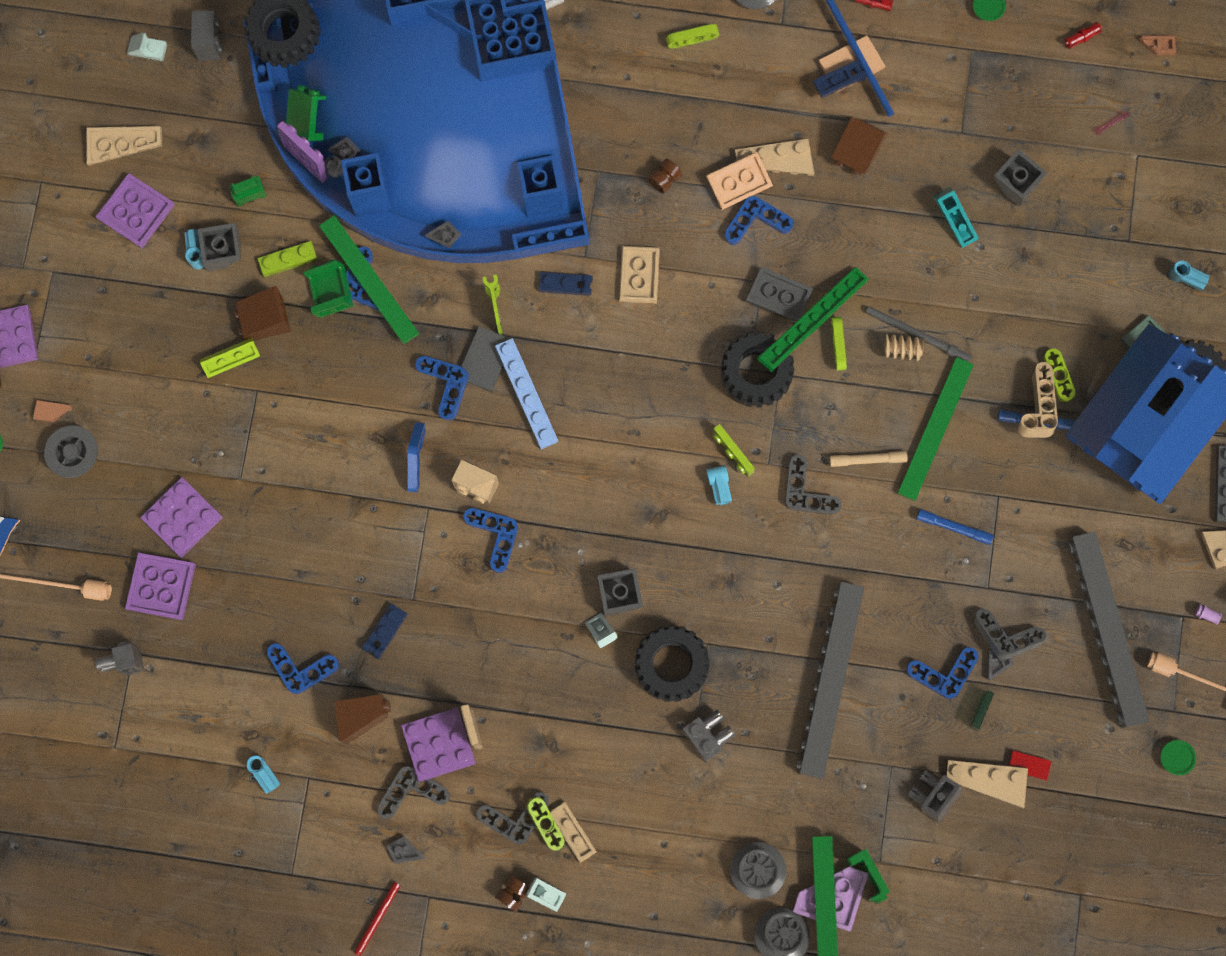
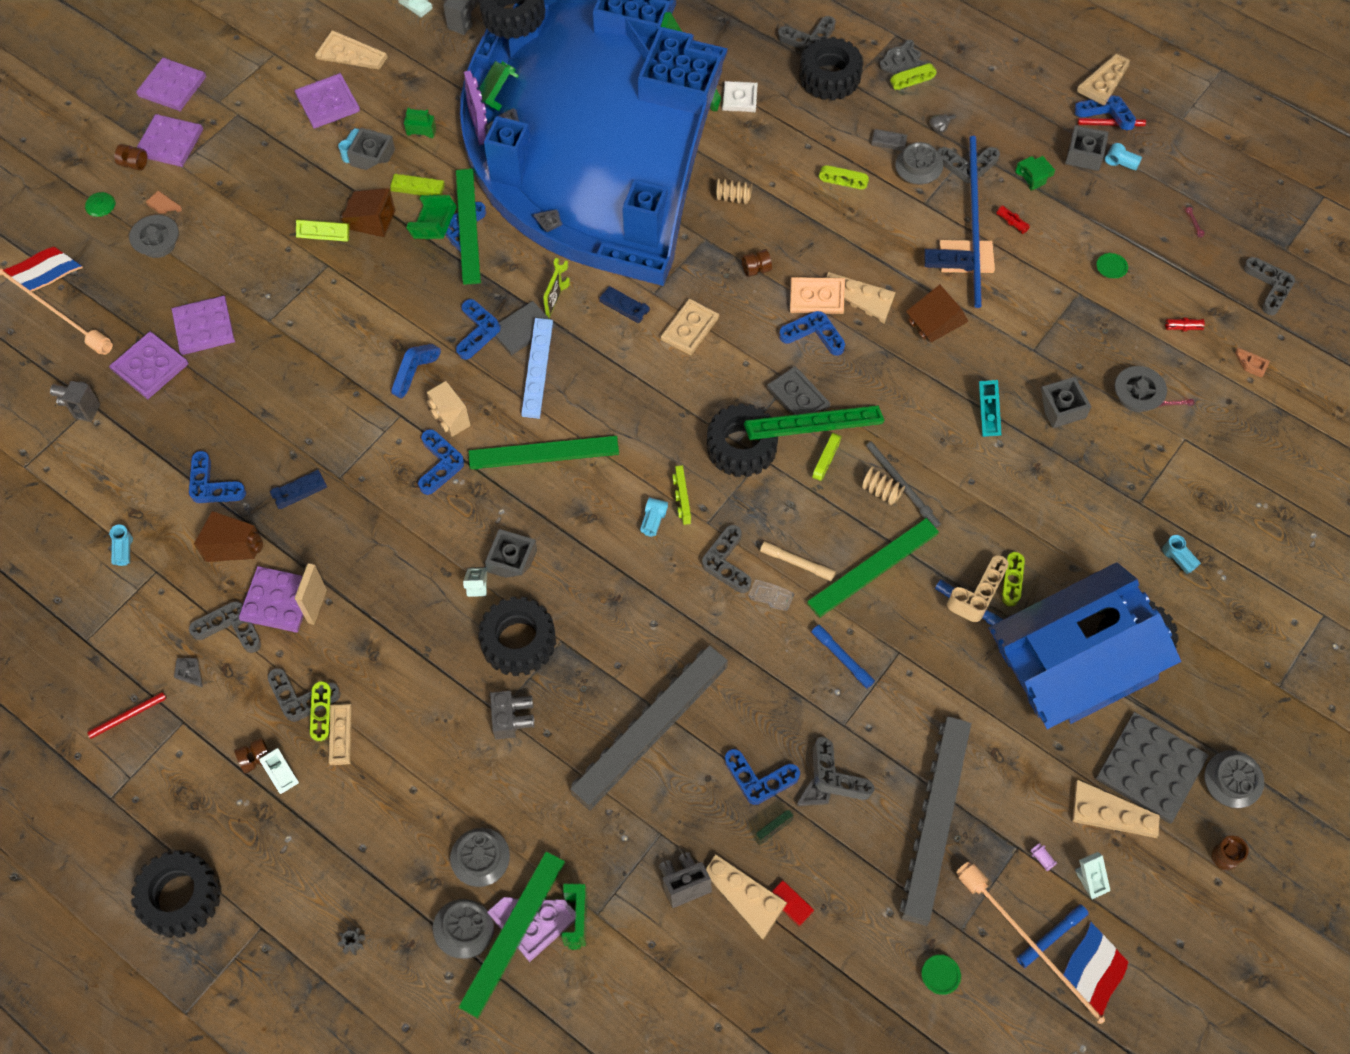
camera: 25 degrees right, 15 degrees down
(583, 475) = (543, 452): none -> green tile
(599, 107) = (733, 191): none -> tan piece
(863, 503) = (772, 594): none -> clear slope
(1078, 127) = (1140, 388): none -> dark grey wheel

